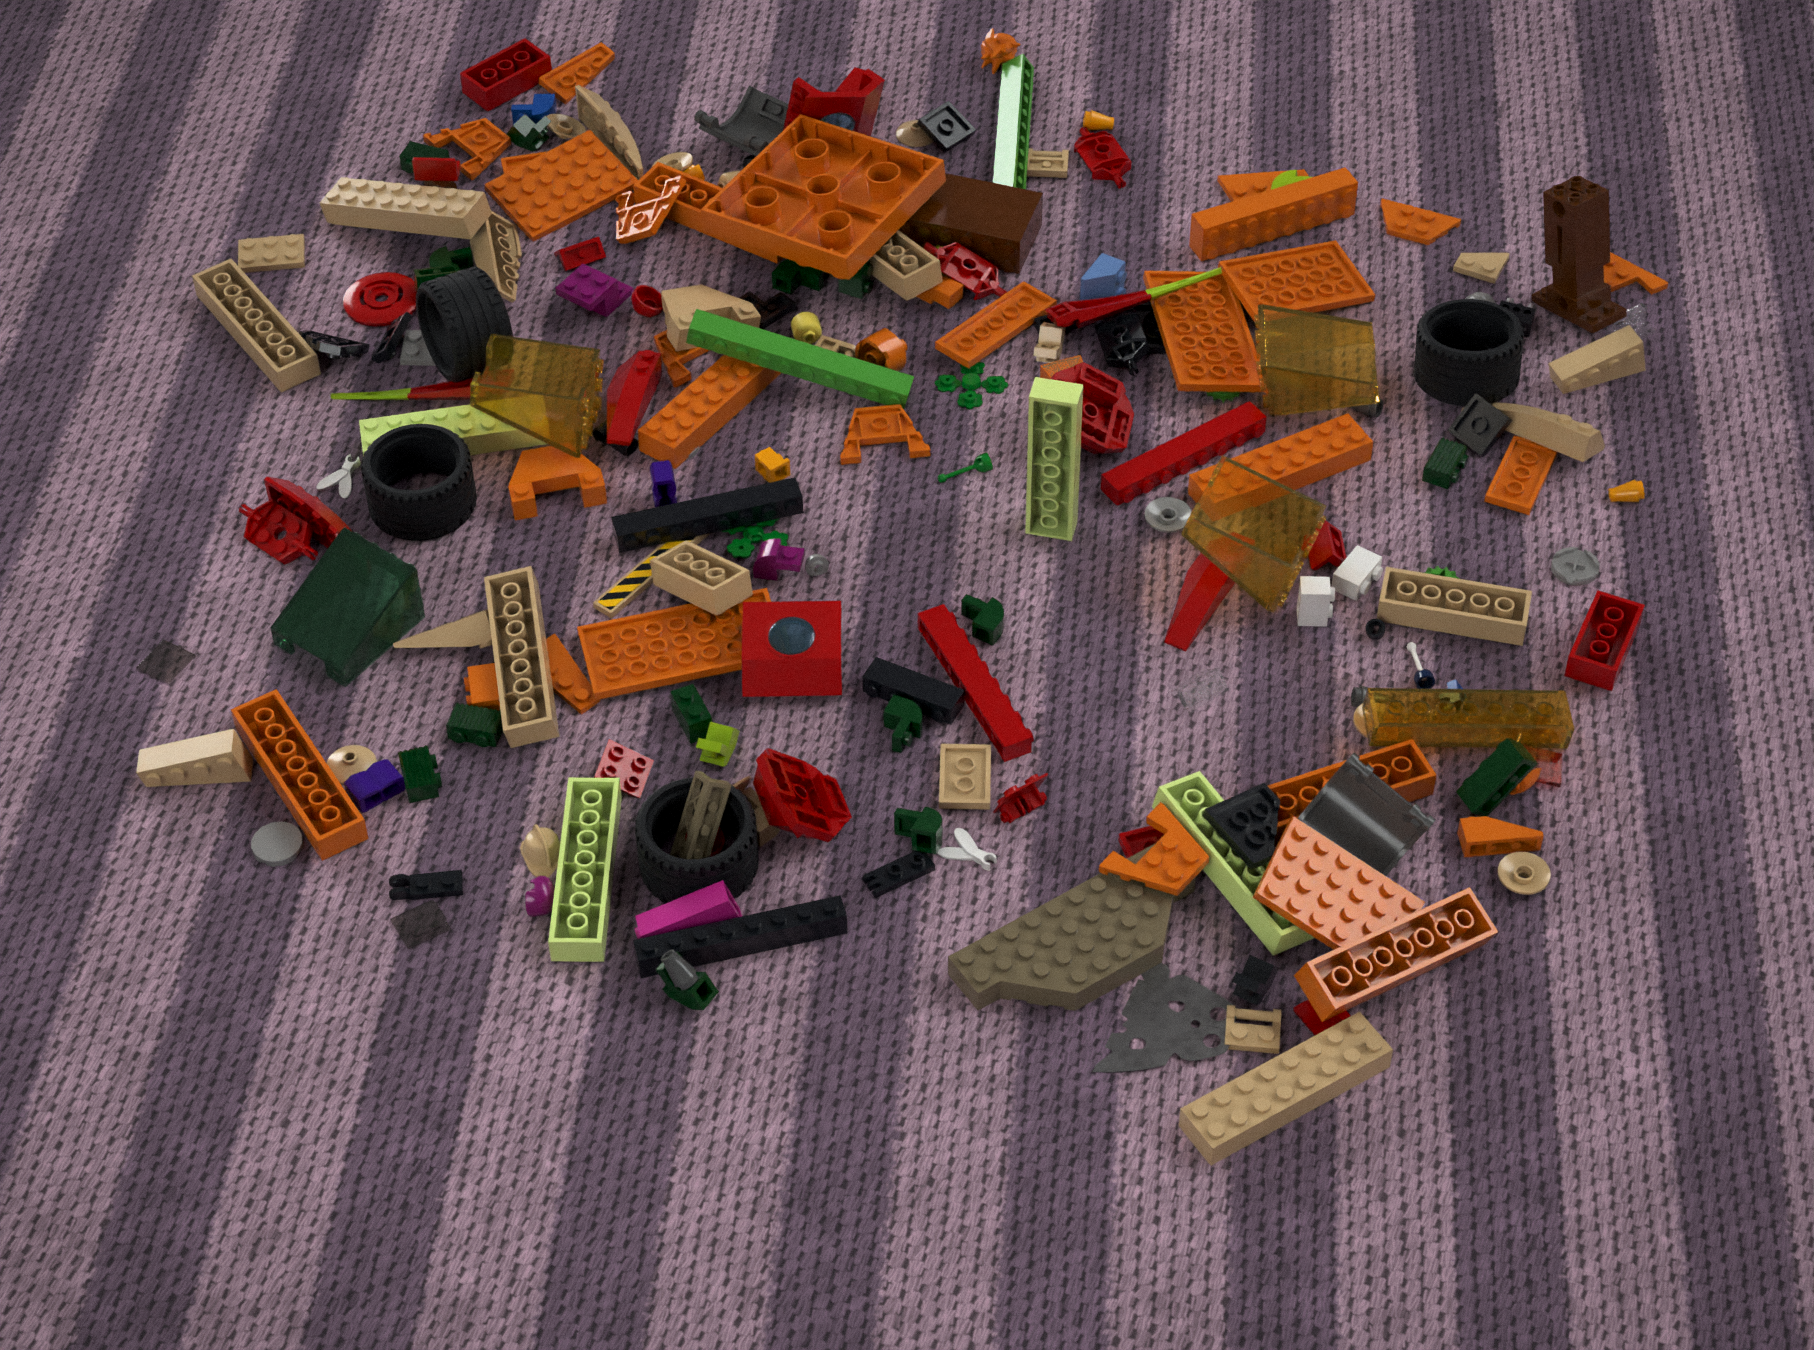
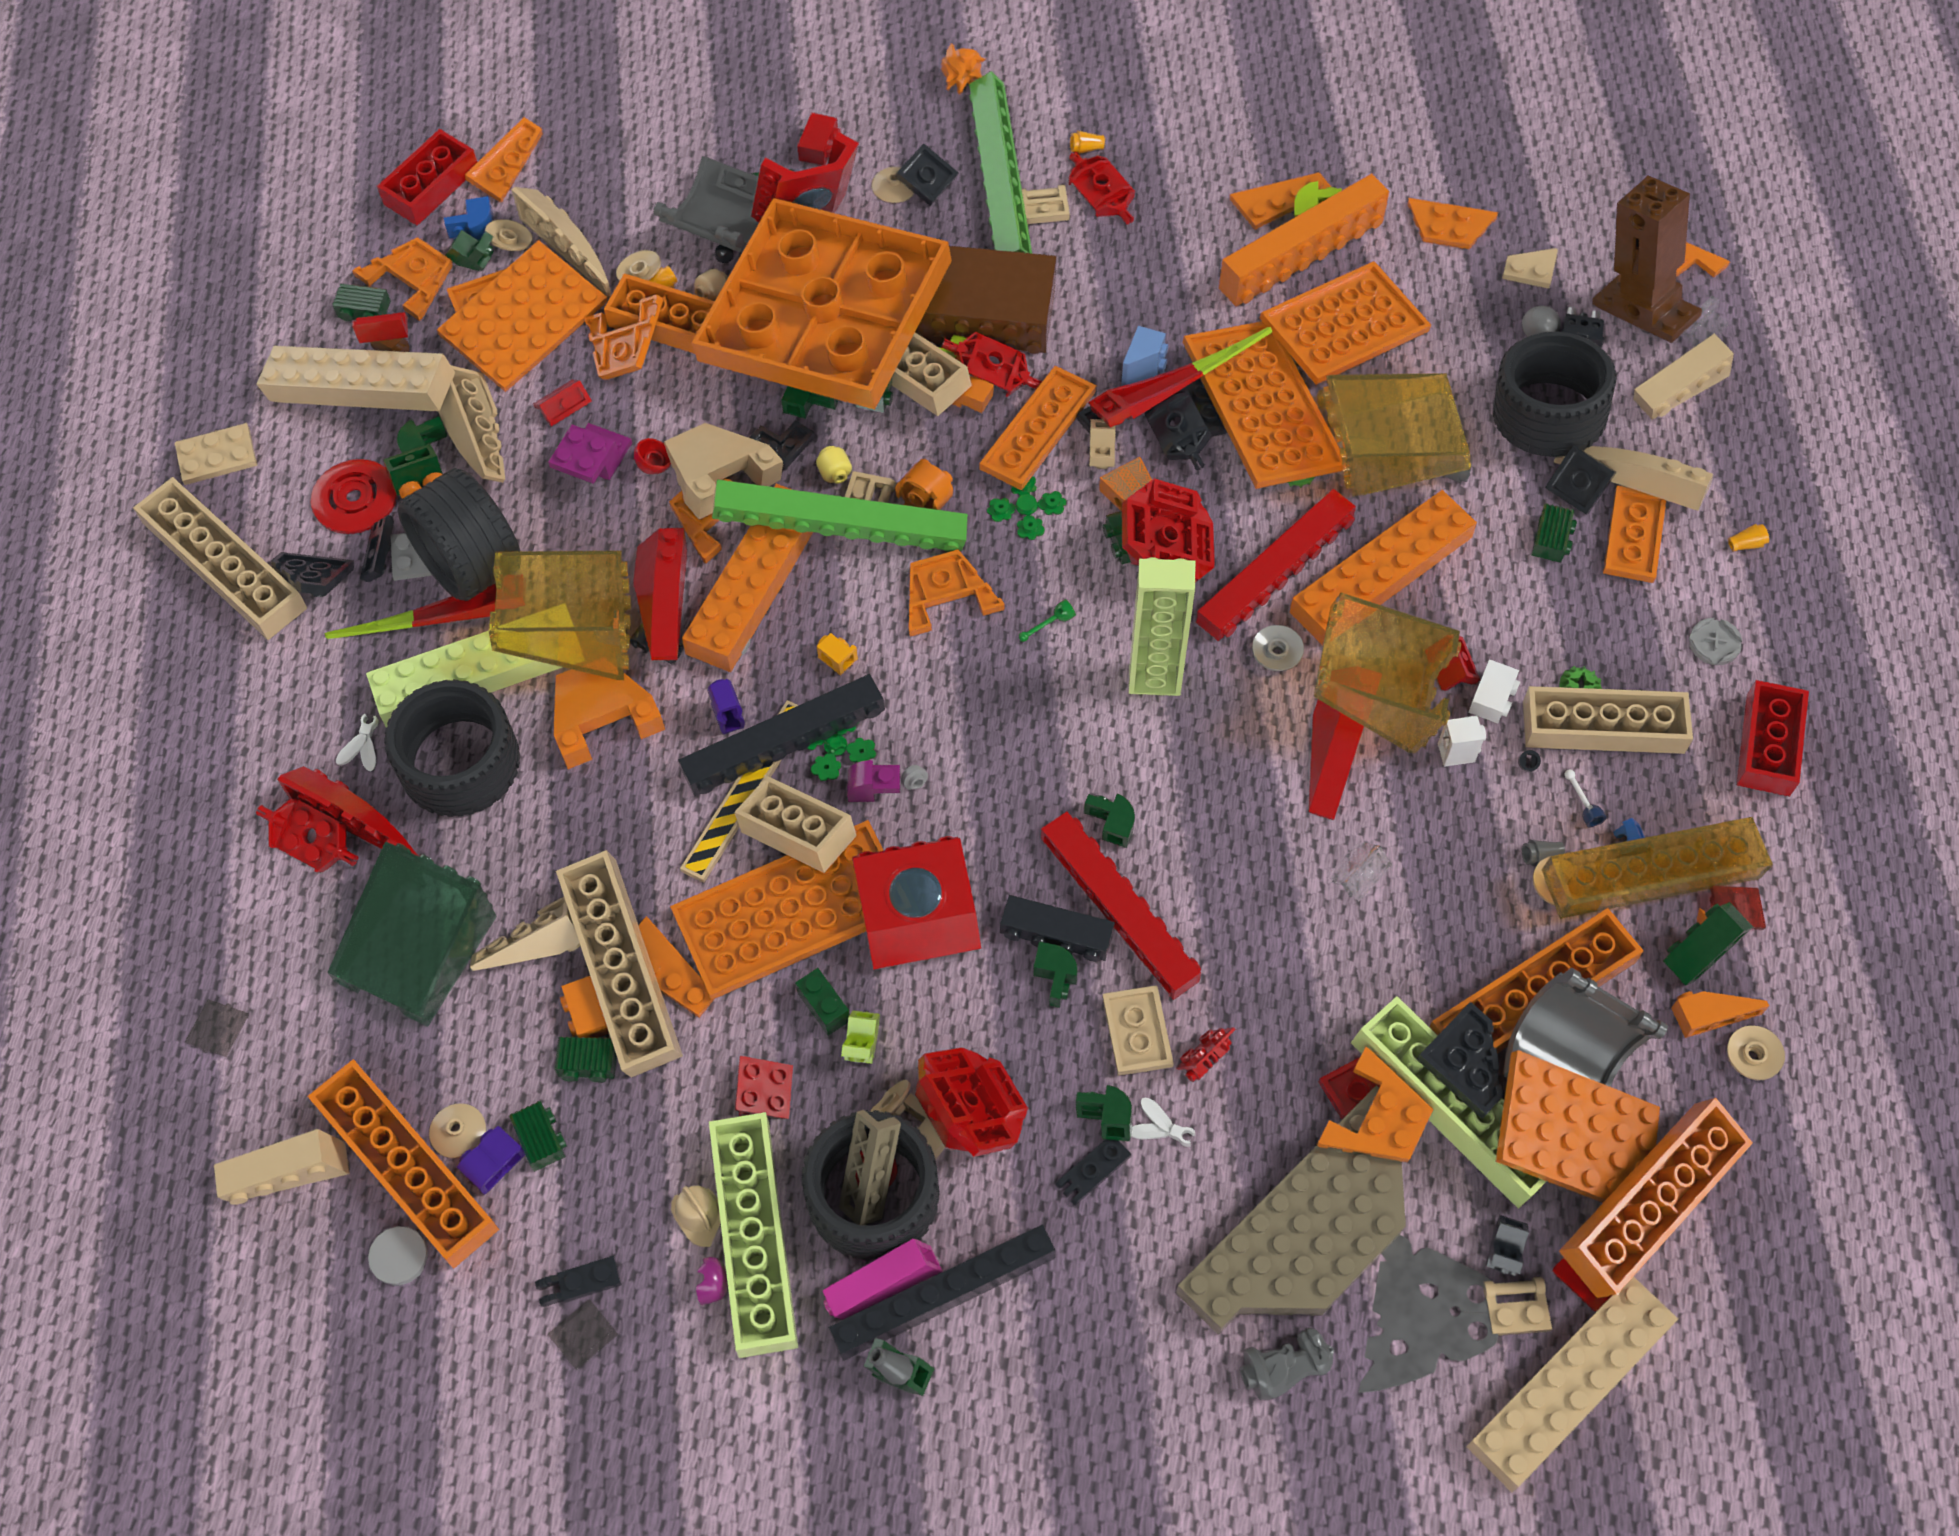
camera: 10 degrees left, 15 degrees up
(1023, 1037) = (1279, 1370): none -> dark grey animal

